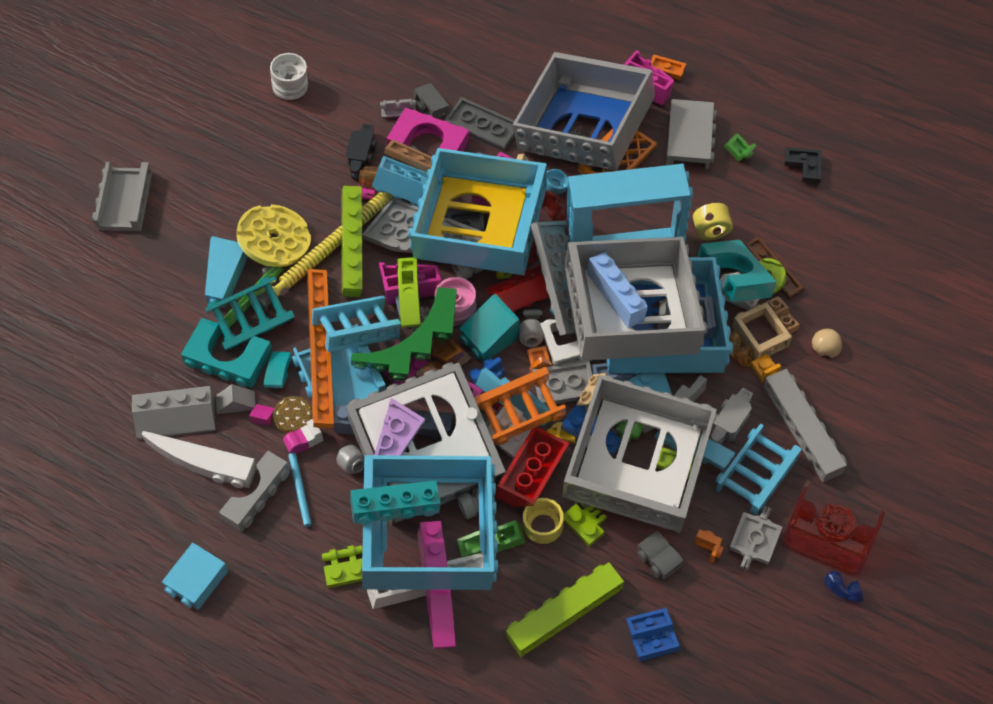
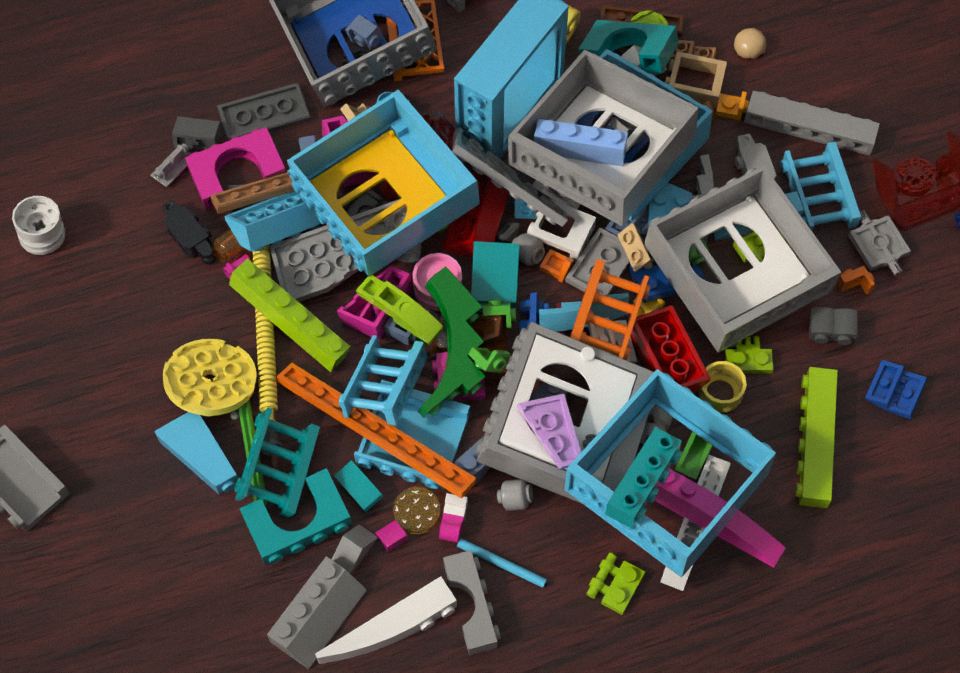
camera: 50 degrees left, 5 degrees up
(418, 363) = (489, 361): none -> bright green bracket
(470, 351) = (495, 307): none -> bright green bracket
(584, 123) = (363, 32): none -> sand blue brick

